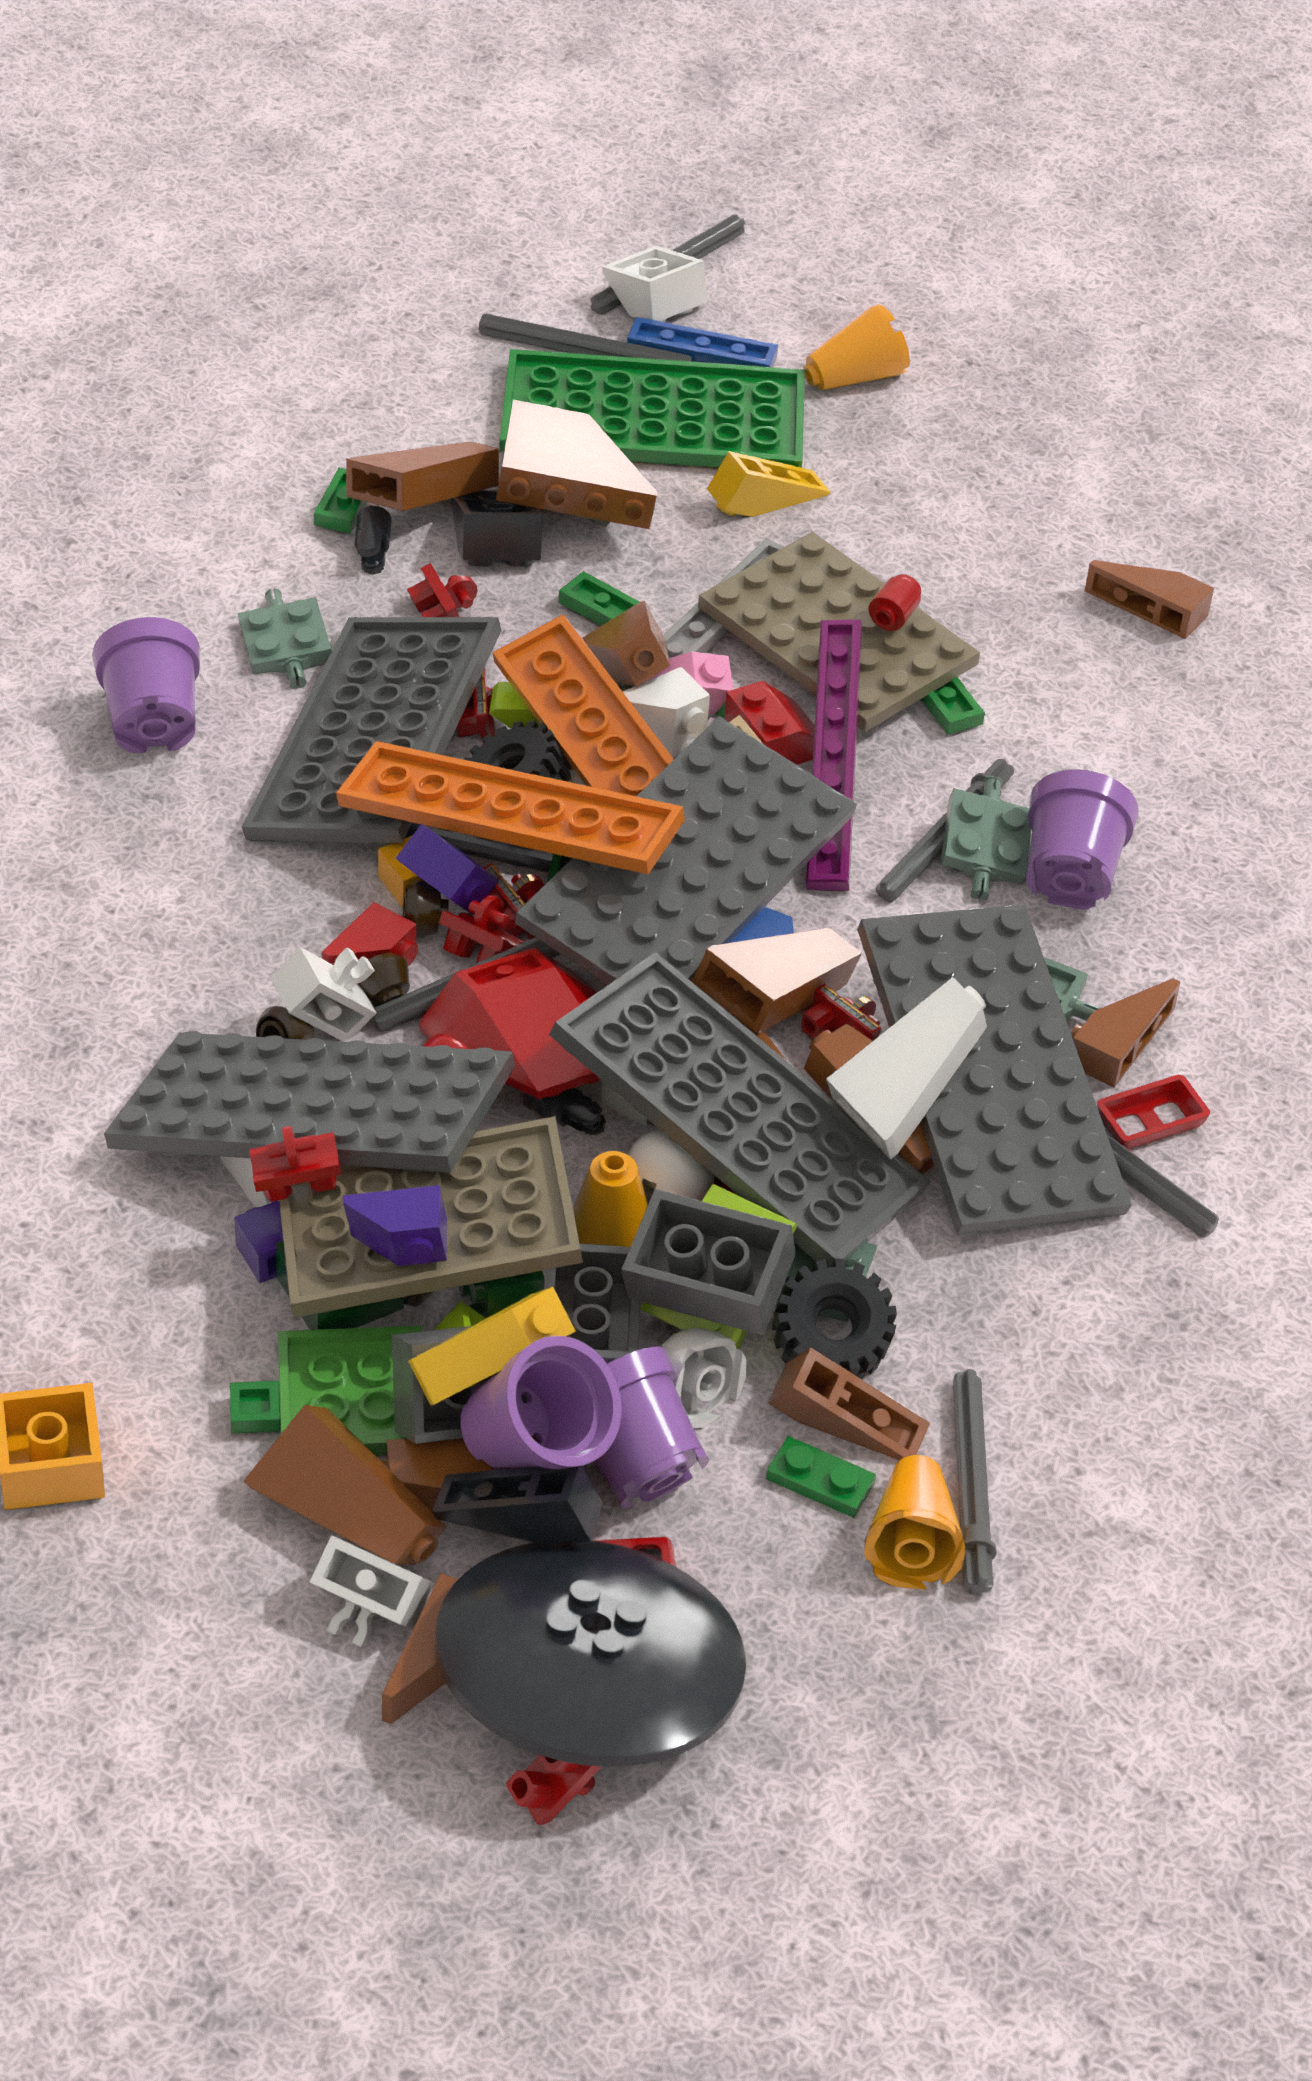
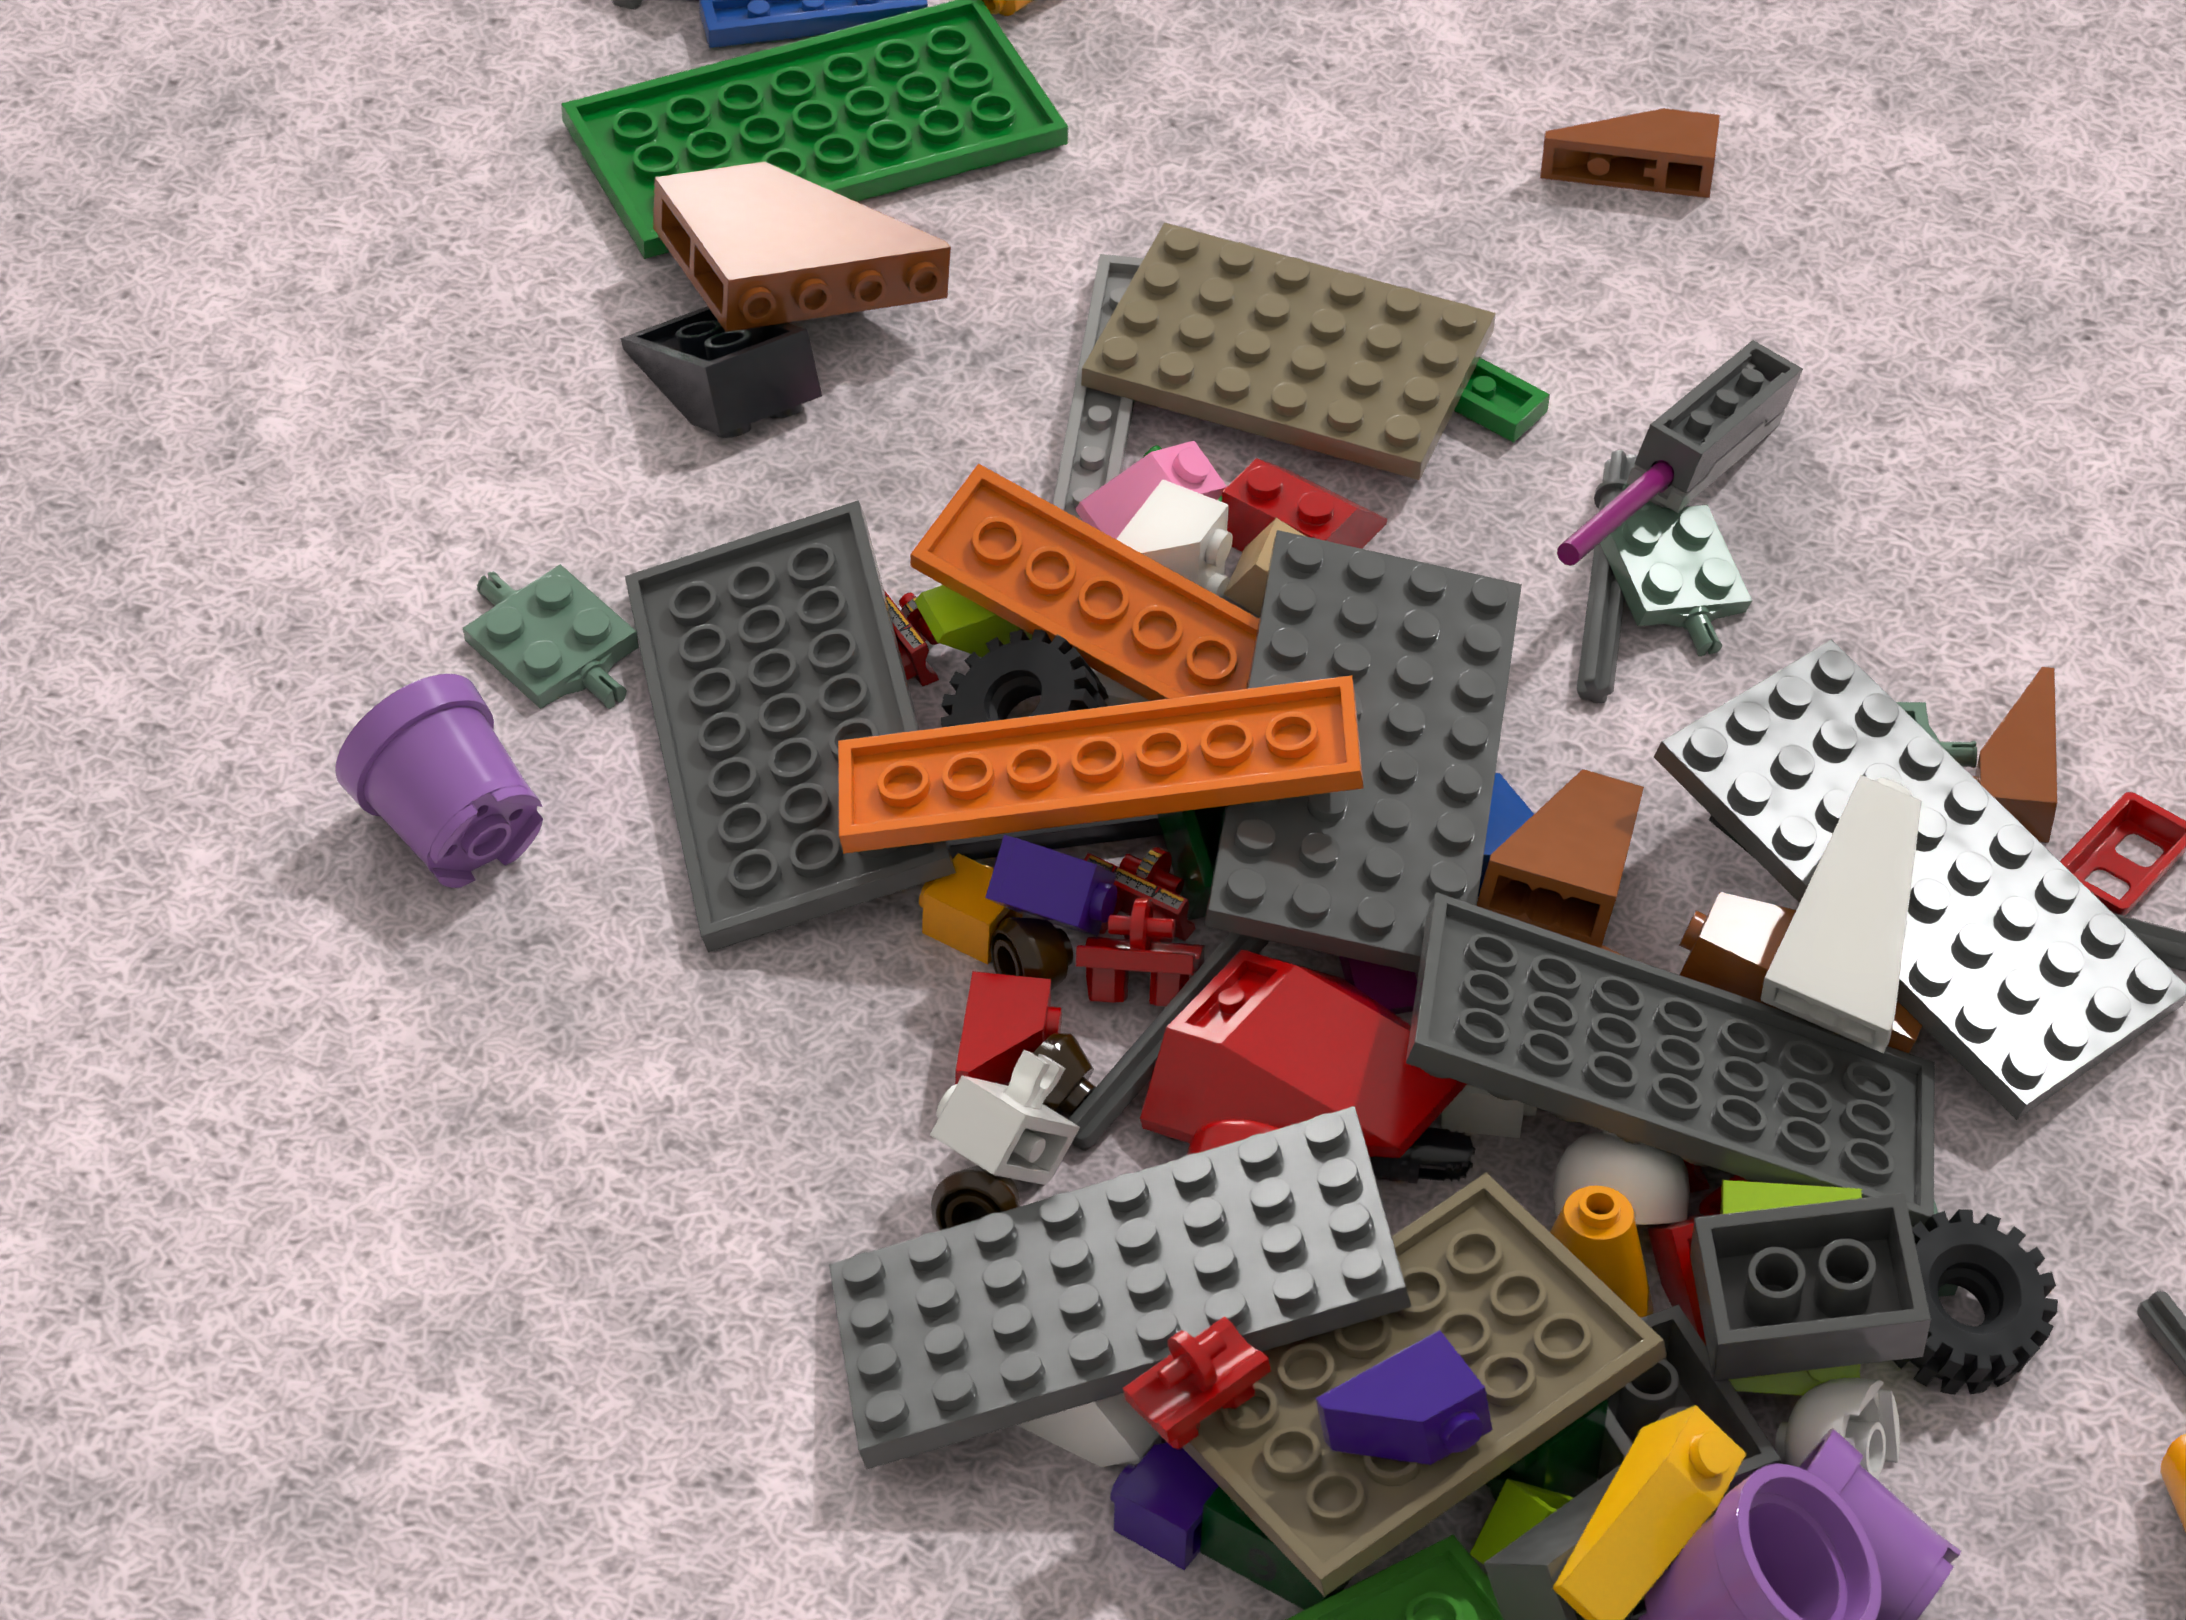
camera: 25 degrees left, 0 degrees up
(335, 508) = (489, 407): green plate -> none
(373, 537) = (569, 448): black hinge -> none
(422, 475) = (588, 333): dark orange slope -> none
(457, 593) = (741, 493): red hips -> none
(568, 340) = (627, 62): dark grey axle -> none
(594, 598) = (945, 427): green plate -> none
(630, 646) = (1074, 468): dark orange slope -> none
(761, 486) = (1038, 182): yellow slope -> none
(820, 1476) = (2073, 1515): green plate -> none
(833, 1011) = (1669, 887): red hips -> none
(836, 742) = (1389, 474): magenta tile -> none
(842, 1405) = (2037, 1406): dark orange slope -> none
(895, 602) = (1361, 284): red brick -> none
(1027, 759) = (1697, 441): none -> dark grey piece
(1078, 836) = (1800, 521): medium lavender piece -> none

